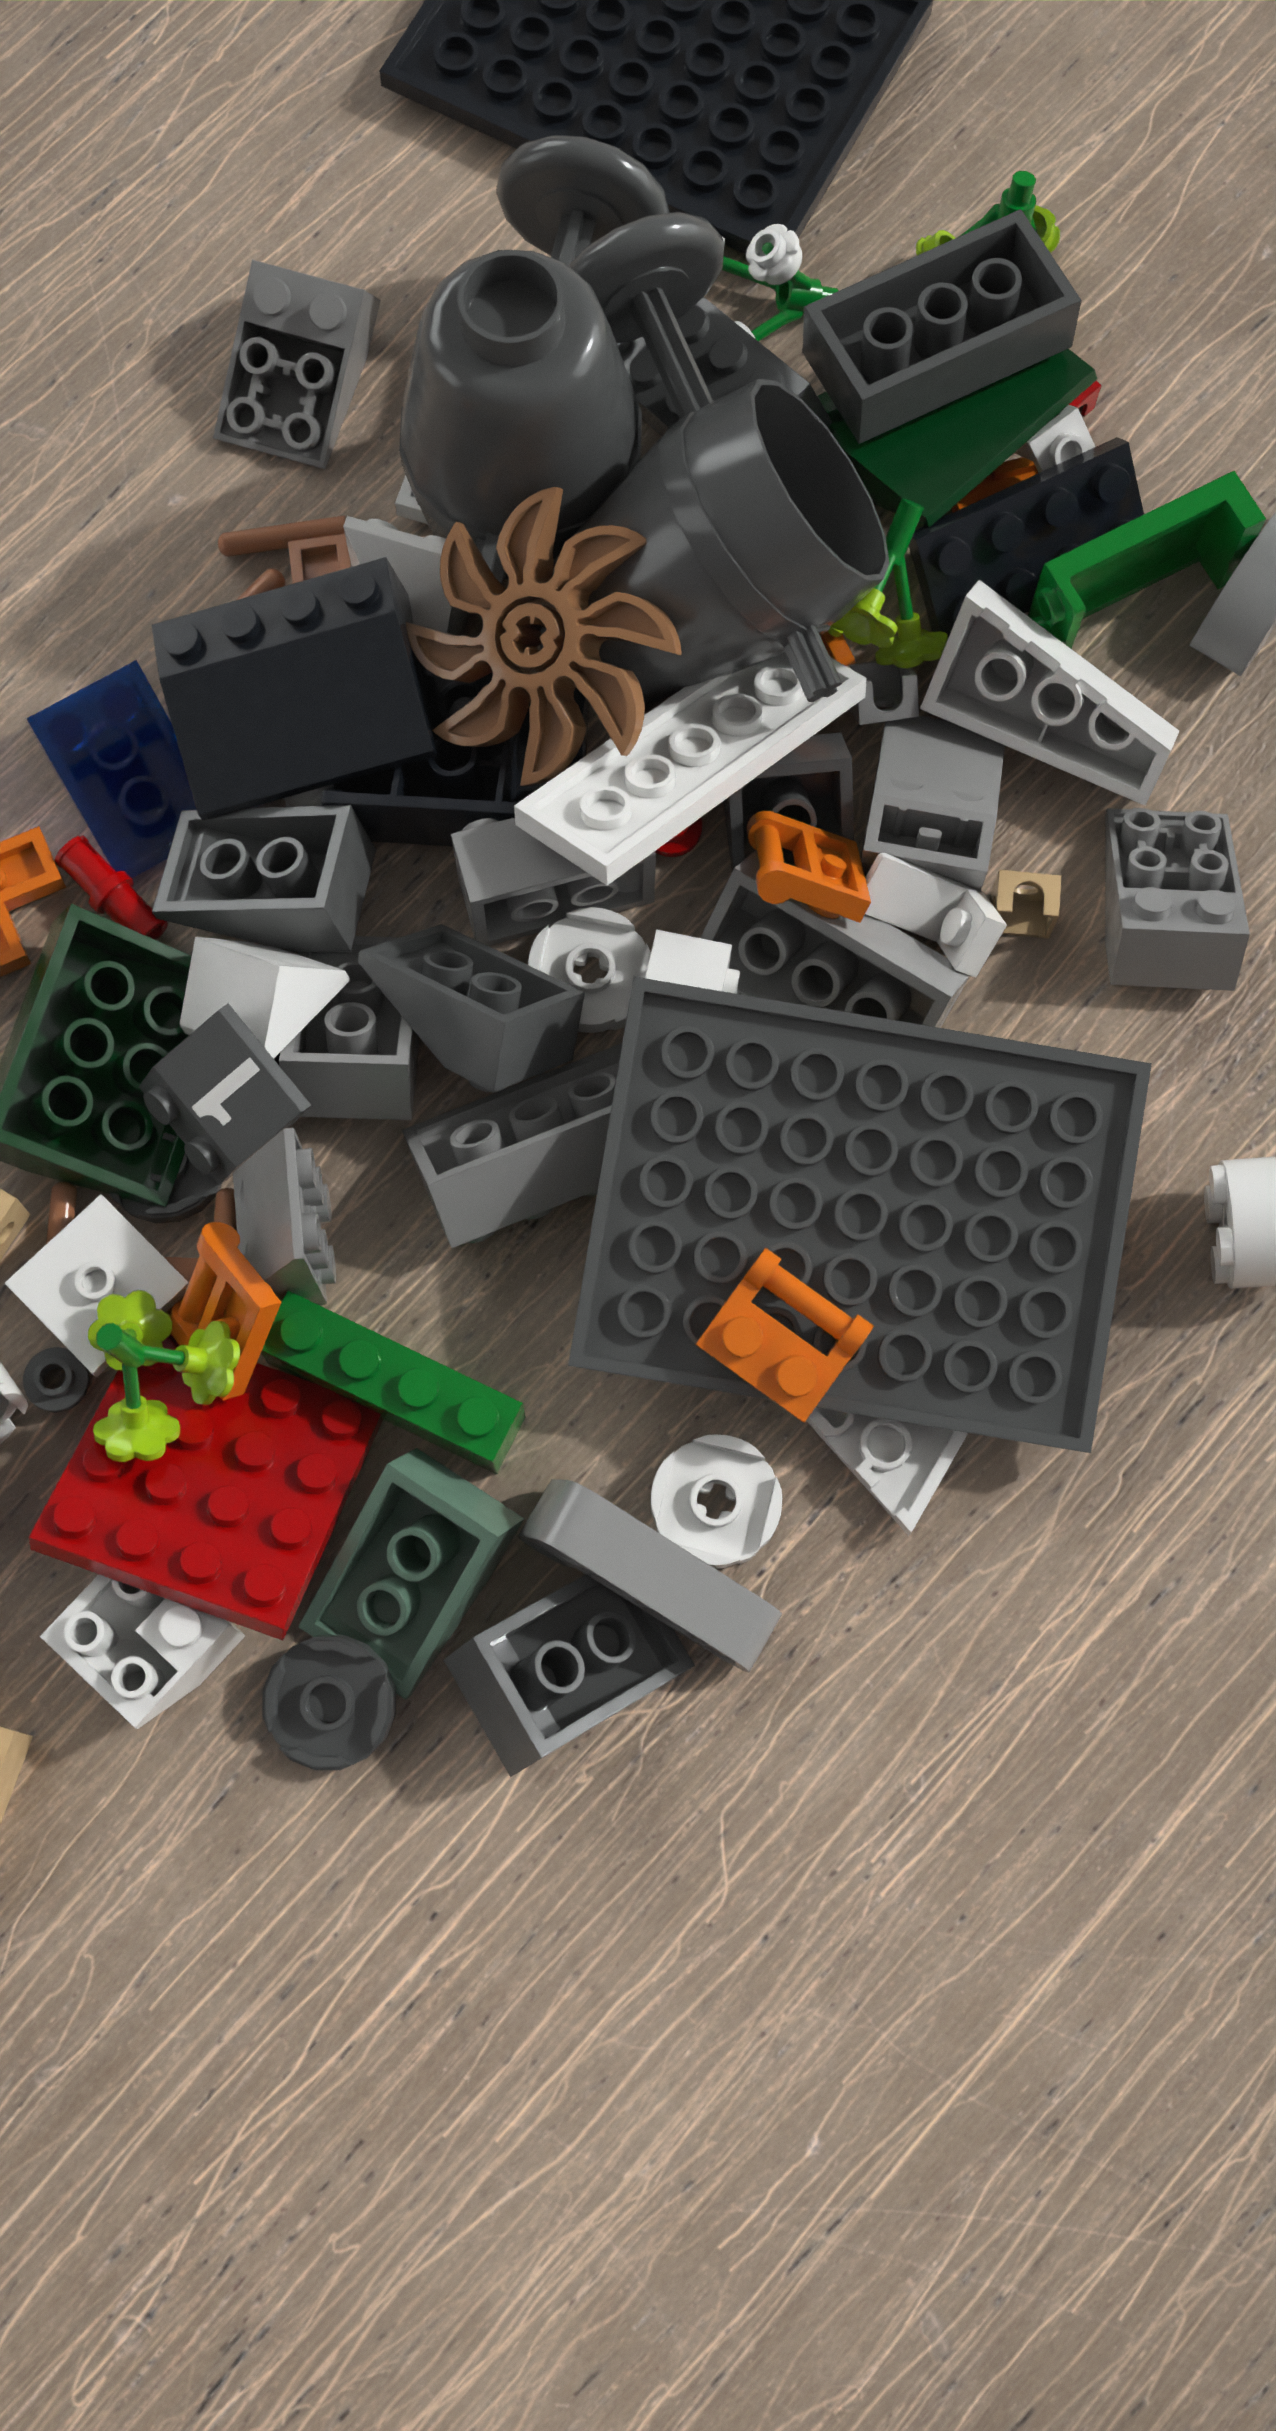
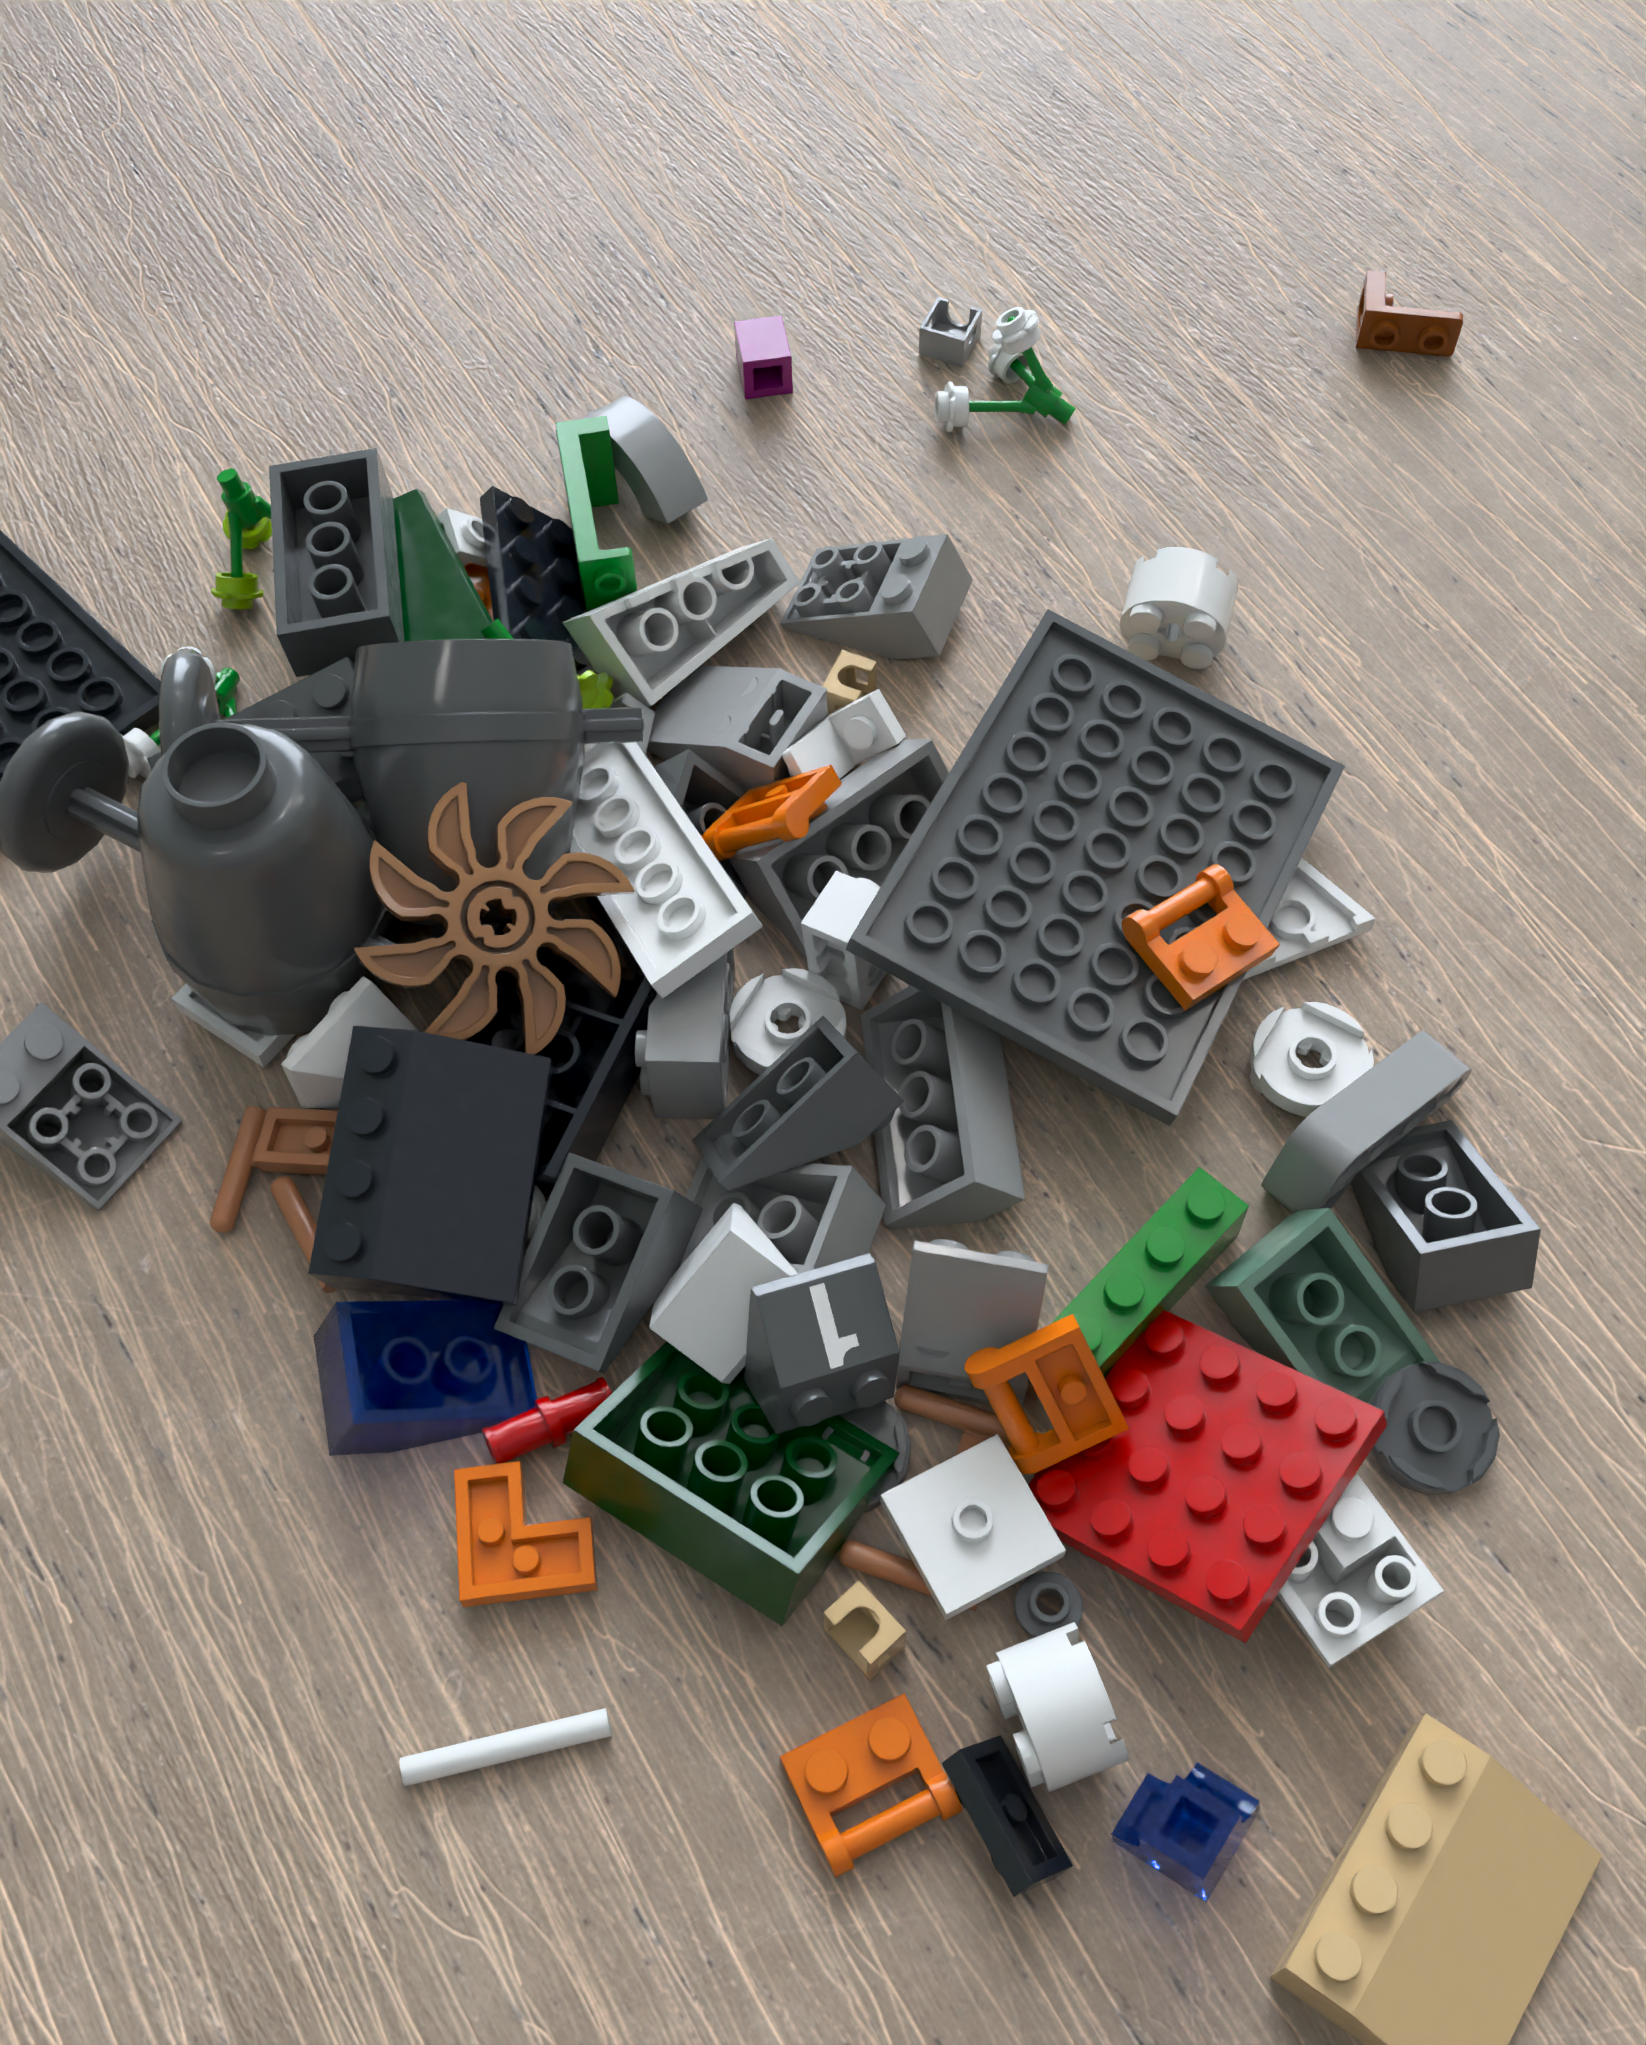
camera: 70 degrees left, 15 degrees down
(132, 1336) = (1101, 1416): lime plant -> none

